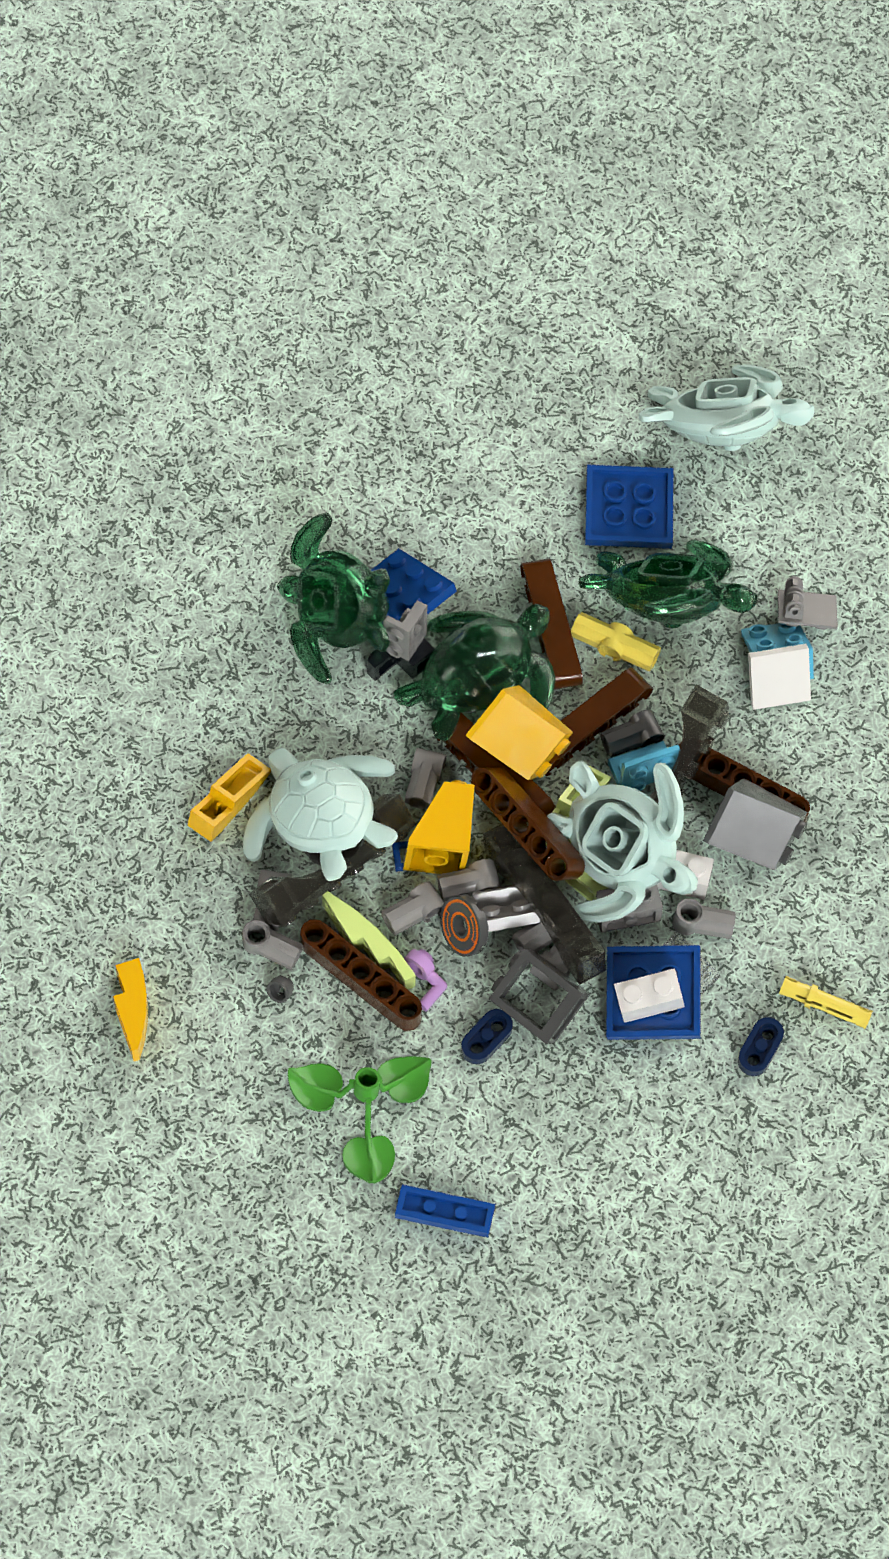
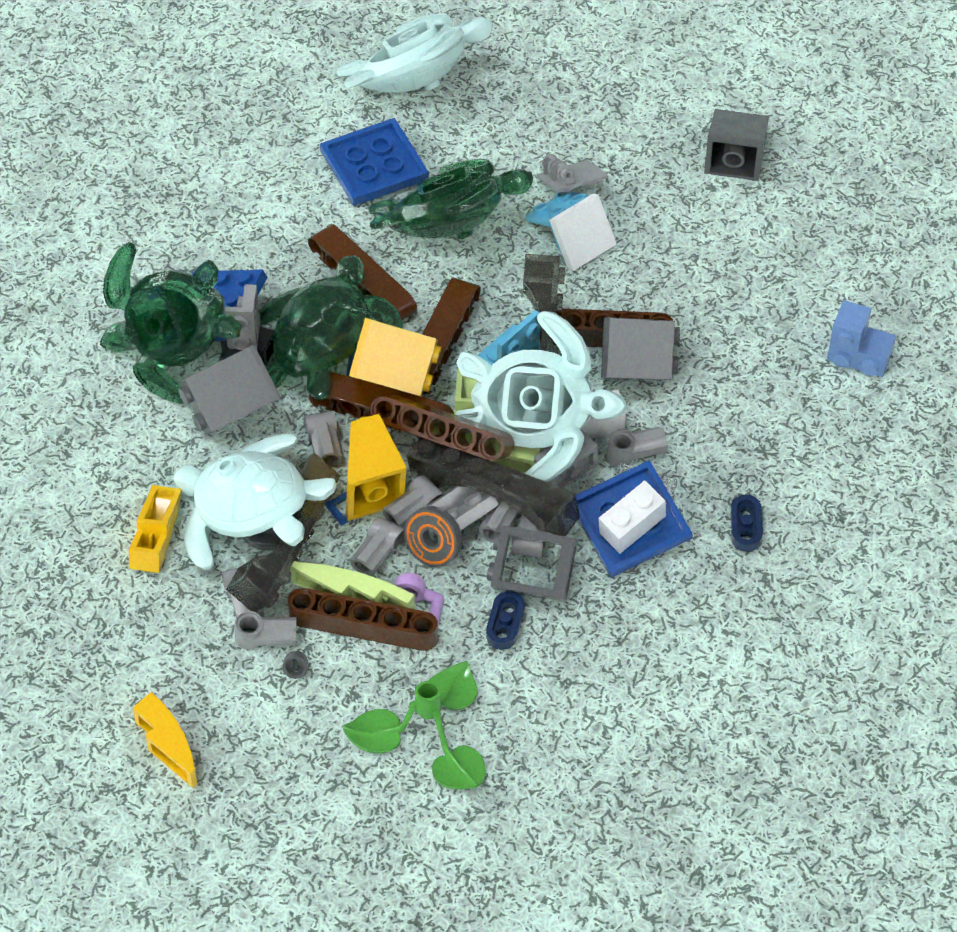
camera: 25 degrees left, 10 degrees down
(357, 693) = (228, 390): none -> slope
(445, 1211) = (556, 780): blue plate -> none
(615, 641) = (426, 265): light yellow piece -> none
(638, 732) = (488, 325): dark grey piece -> none
(818, 999) = (783, 464): light yellow pin -> none

